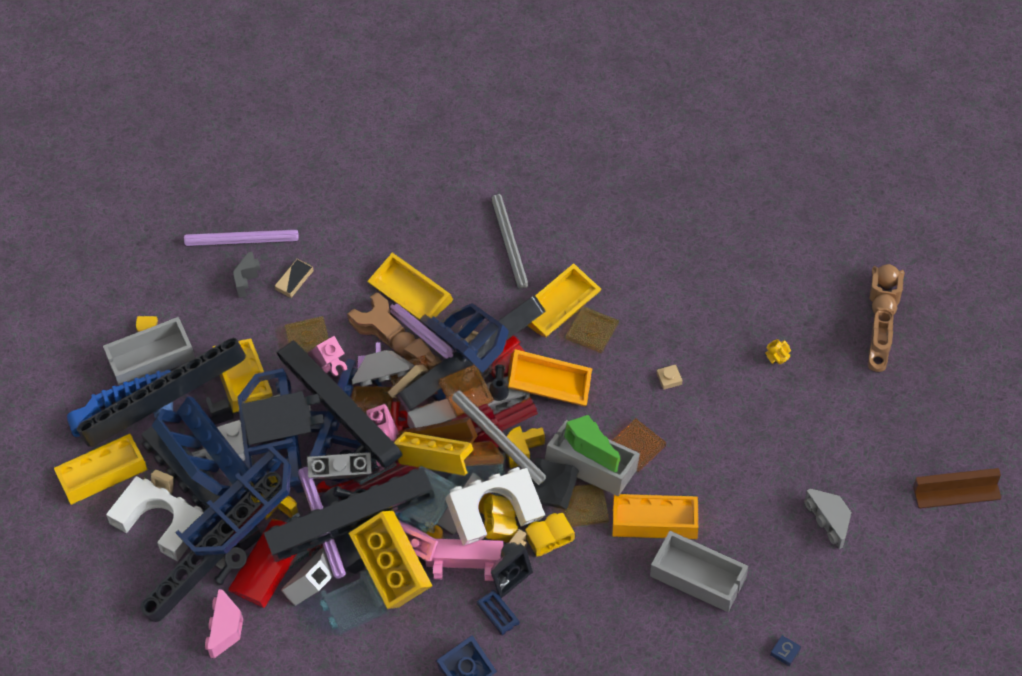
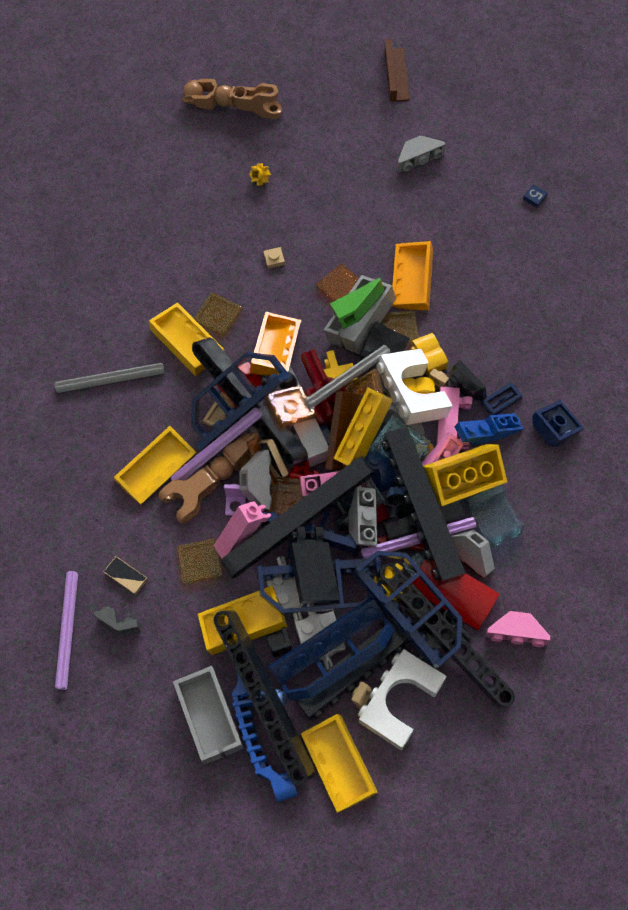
camera: 85 degrees left, 10 degrees up
(145, 322) = (166, 725): yellow tile -> none
(453, 591) = (488, 430): none -> blue slope
(699, 571) = (470, 244): light grey piece -> none

